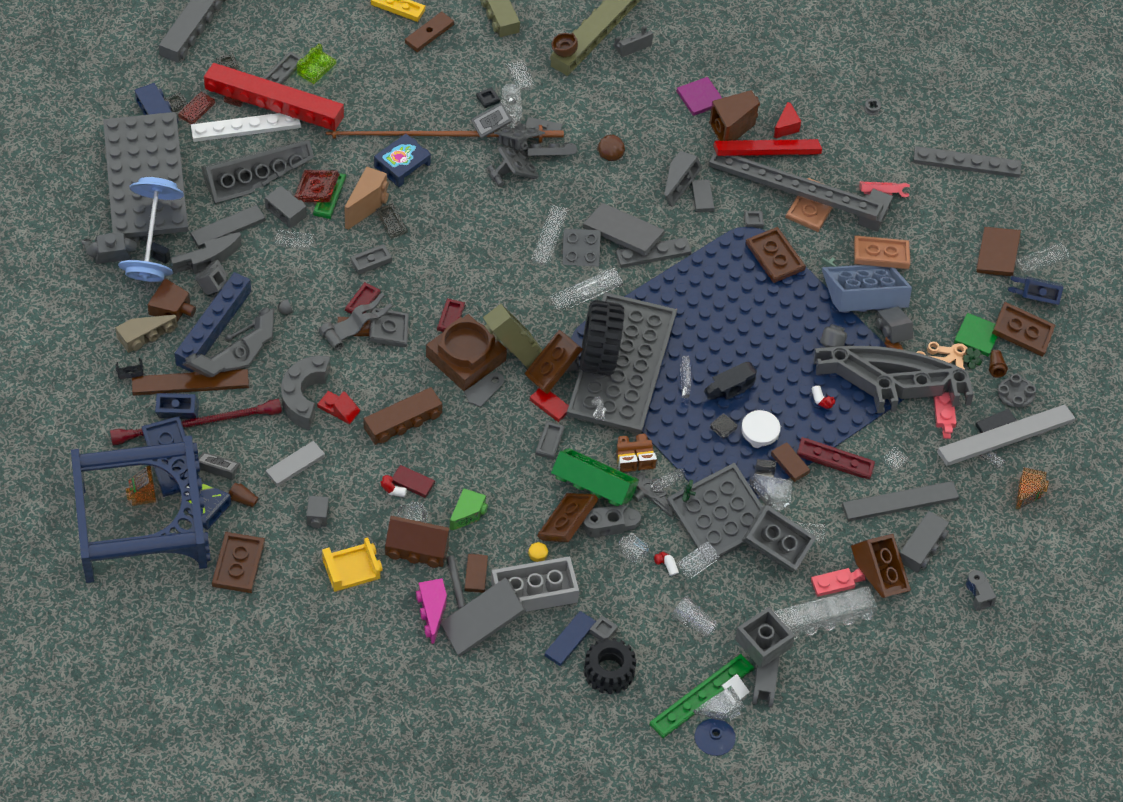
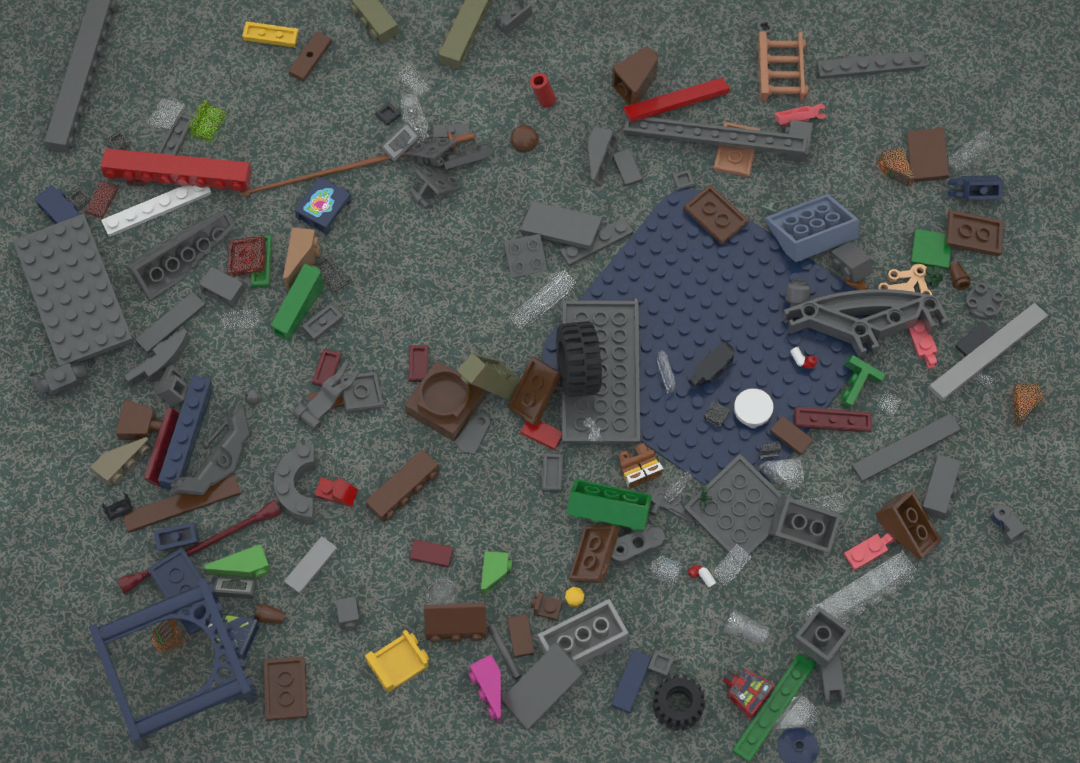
camera: 10 degrees left, 10 degrees up
(157, 189) = (91, 310): light blue axle -> none
(160, 253) = (111, 370): black tile -> none
(185, 327) = (161, 446): none -> dark red tile
(232, 446) = (245, 564): none -> bright green slope
(279, 50) = (166, 114): none -> clear piece
(353, 234) = (298, 301): none -> green slope
(391, 489) = (412, 567): arm -> none
(508, 553) = (546, 606): none -> reddish brown bracket
(549, 236) = (490, 250): clear tile -> none
(565, 44) = (450, 40): reddish brown hair -> none
(641, 108) = (543, 90): none -> red brick
(680, 673) = (748, 691): none -> torso
(698, 95) = (595, 59): magenta tile -> none
(738, 686) = (804, 688): white sticker -> none
(788, 122) = (689, 67): red slope -> none
(862, 146) = (766, 74): none -> nougat fence
(876, 421) = (861, 372): none -> green bracket
(881, 252) = (816, 184): nougat tile -> none
(964, 253) = (896, 166): none -> clear orange slope

